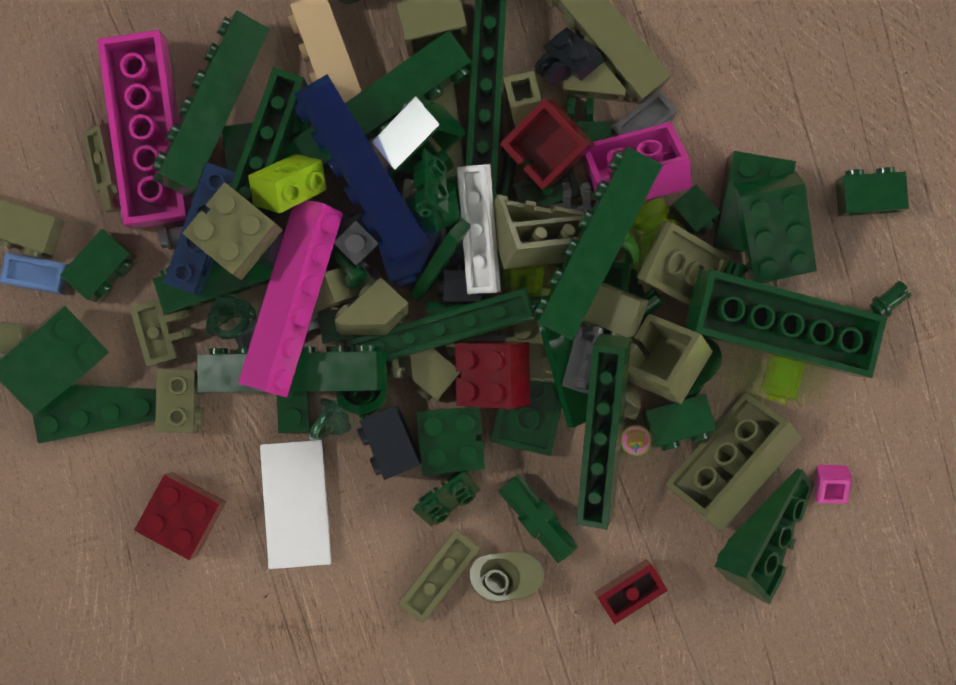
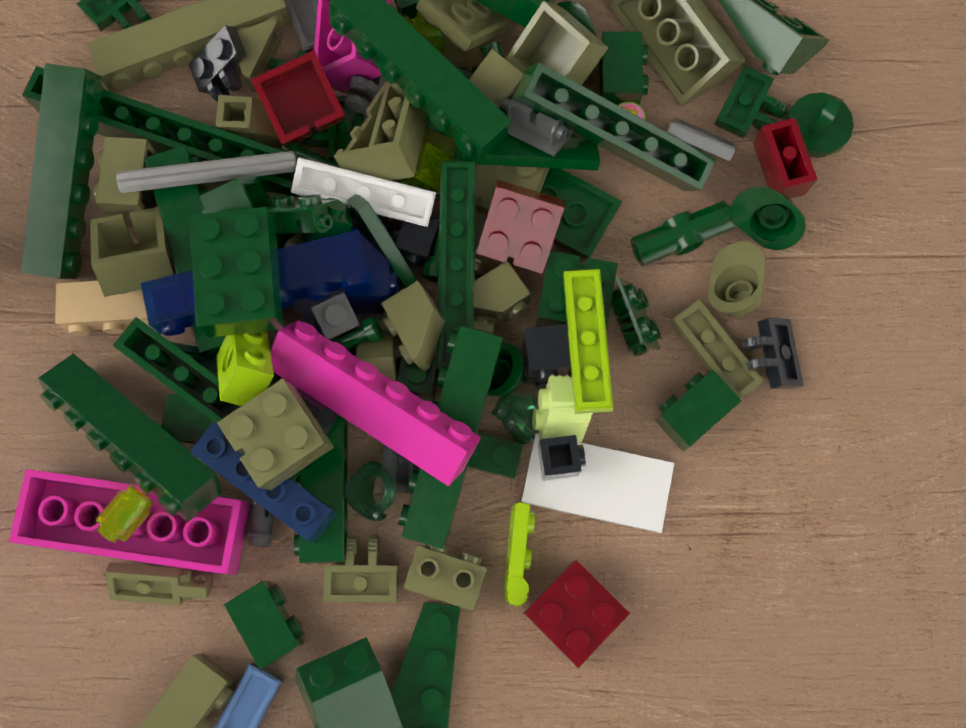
camera: 75 degrees left, 10 degrees down
(142, 126) = (124, 514): none -> clear neon green brick
(214, 454) = (517, 555): none -> lime hinge
(299, 467) = (561, 457): none -> black brick
(341, 459) = (556, 411): none -> yellowish green brick
(353, 153) = (236, 272): none -> dark green brick
(357, 50) = (125, 265): none -> olive piece
(381, 571) = (696, 410): none -> dark green brick
(397, 462) = (587, 342): none -> lime tile
(450, 89) = (205, 171): none -> light grey axle
(452, 630) = (779, 352): none -> black hinge
(571, 591) = (768, 217): none -> dark green piece
(626, 512) = (702, 139): none -> tile
(682, 615) = (823, 123): none -> dark green tile
(684, 542) = (744, 102): none -> dark green hinge

